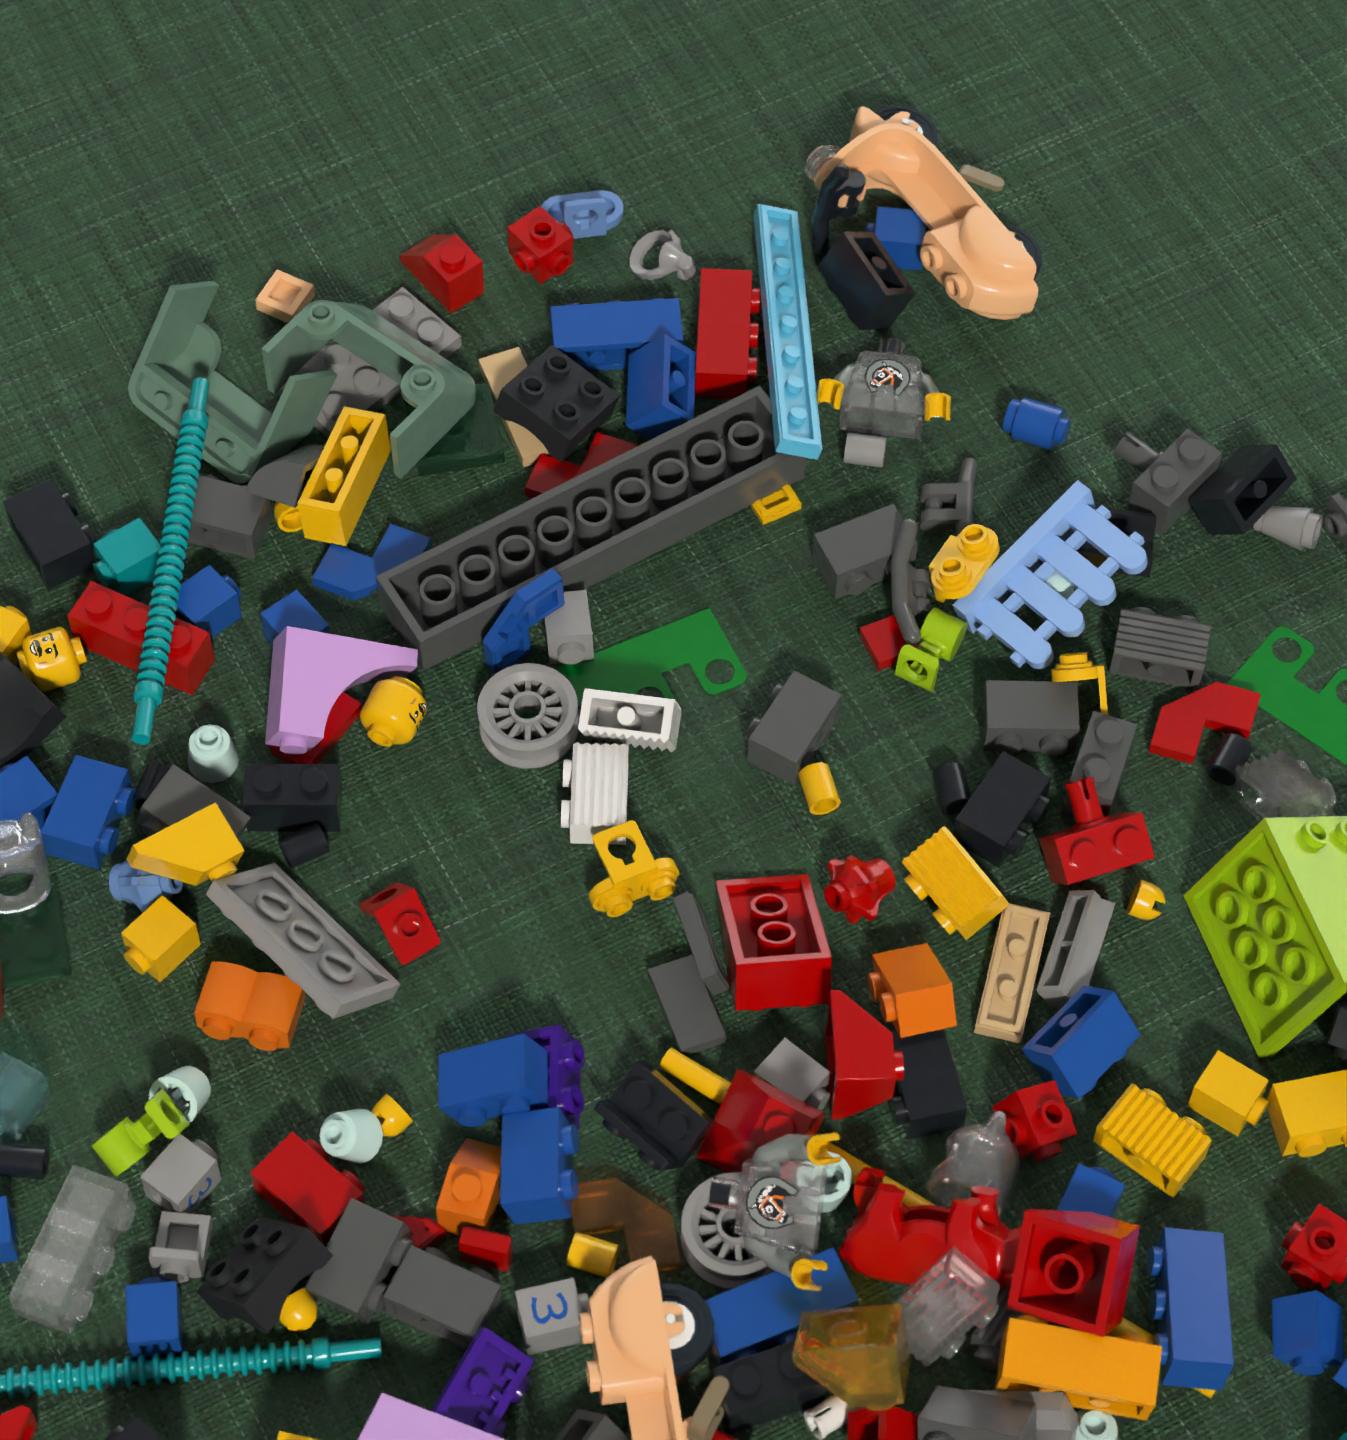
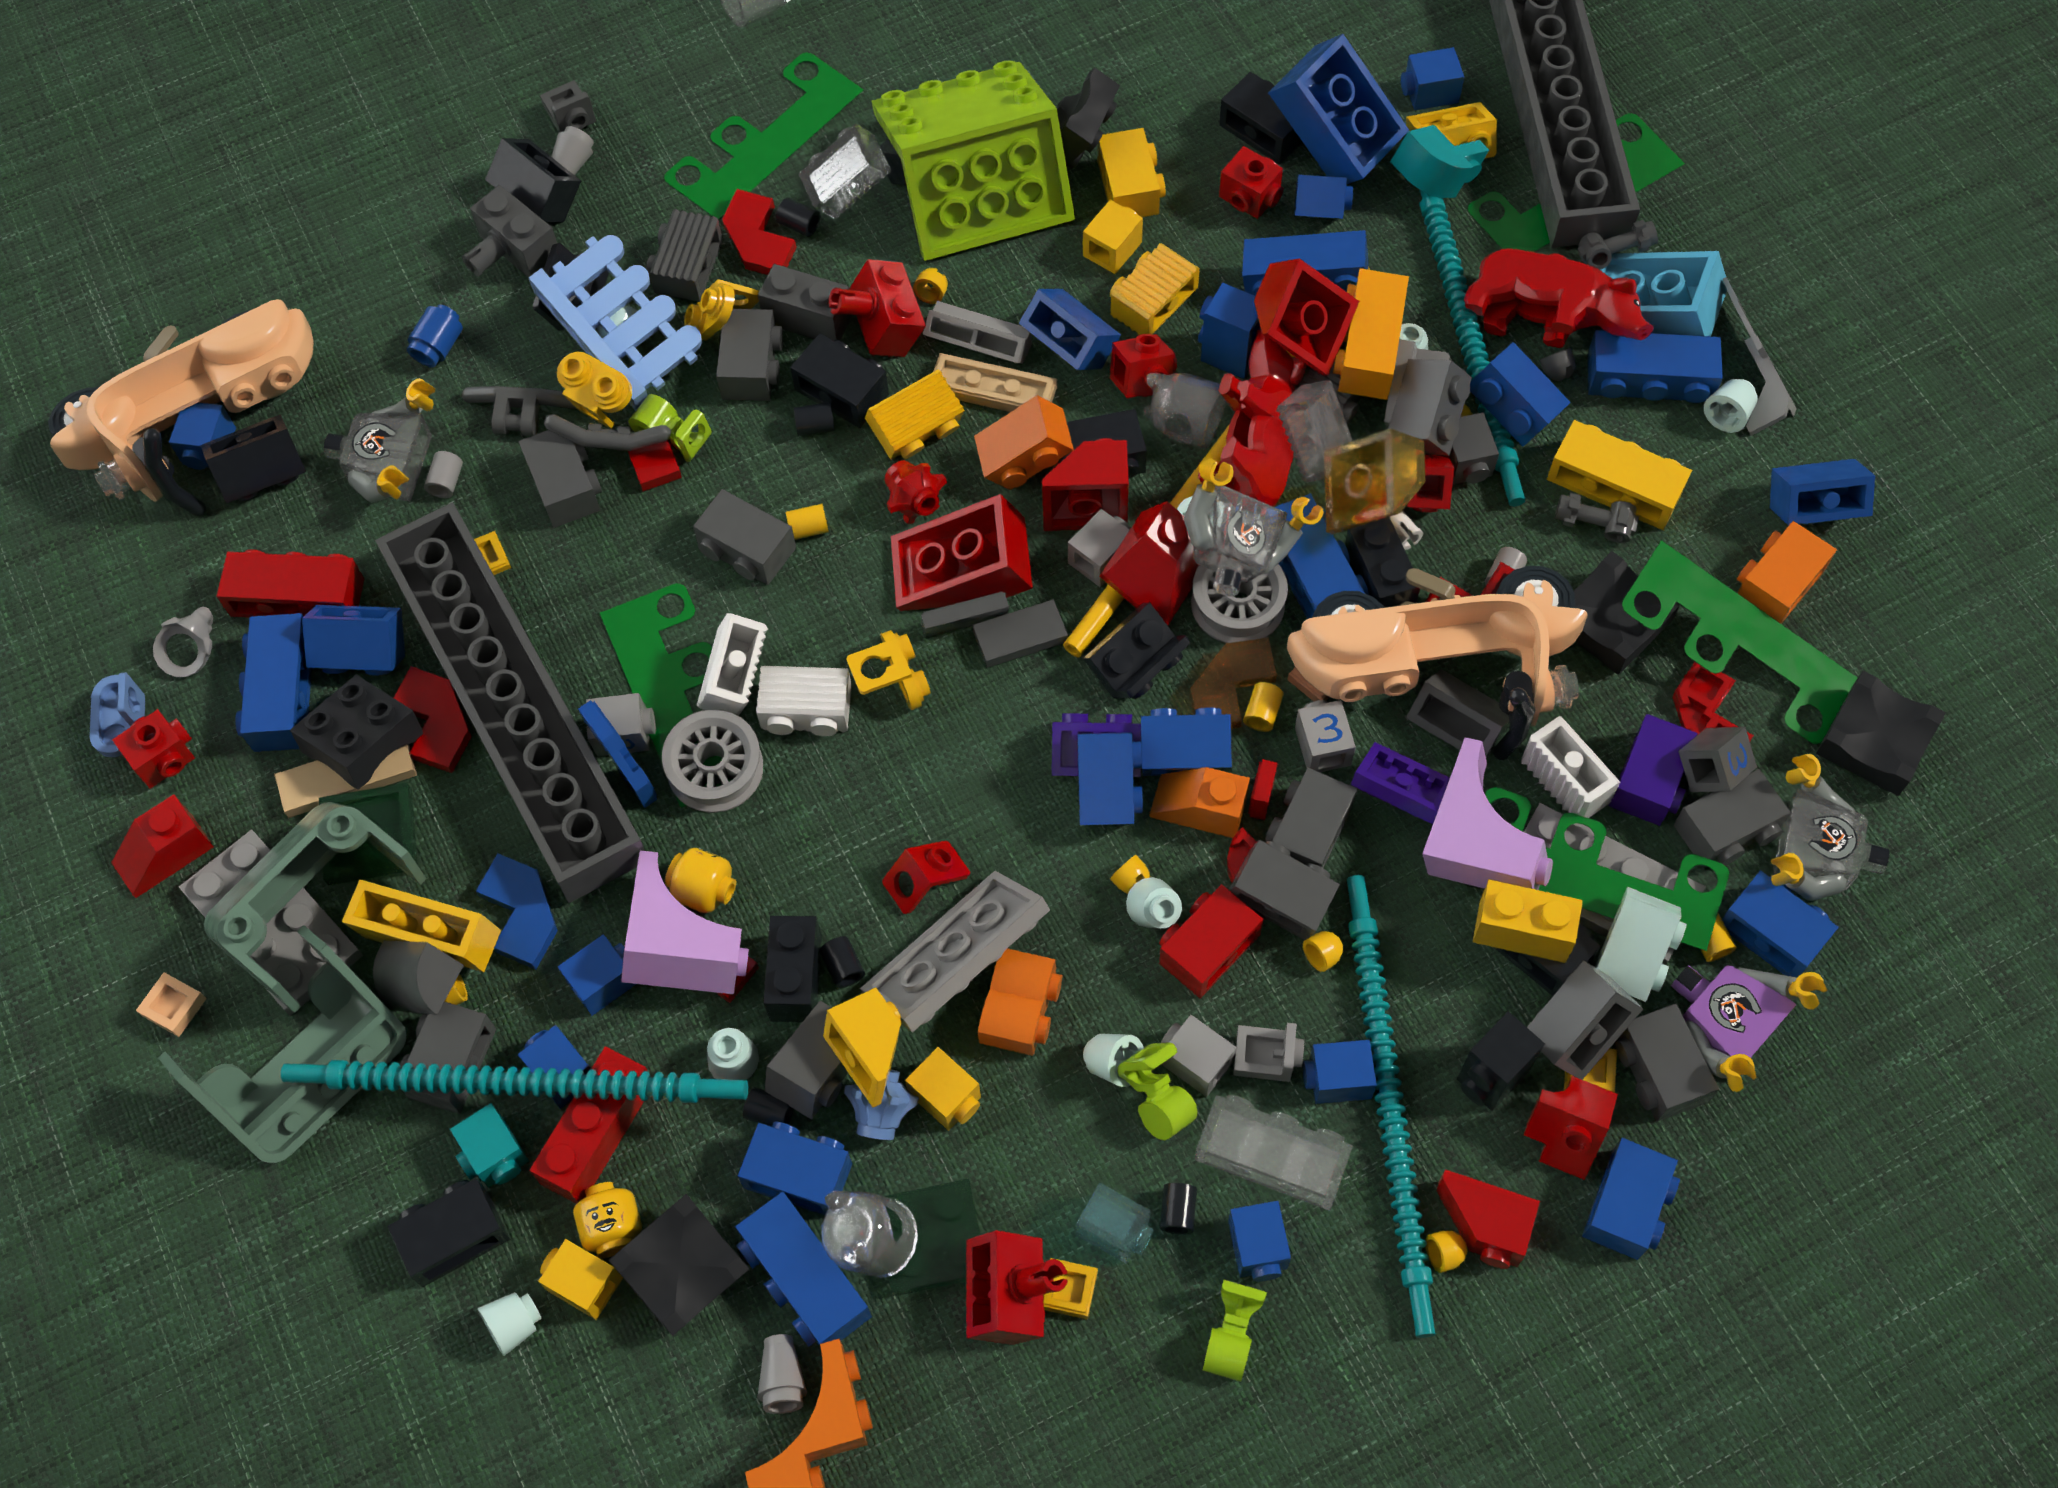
camera: 85 degrees left, 5 degrees up
(262, 1272) = (1302, 967): black brick -> none
(787, 333) = (304, 522): medium azure tile -> none

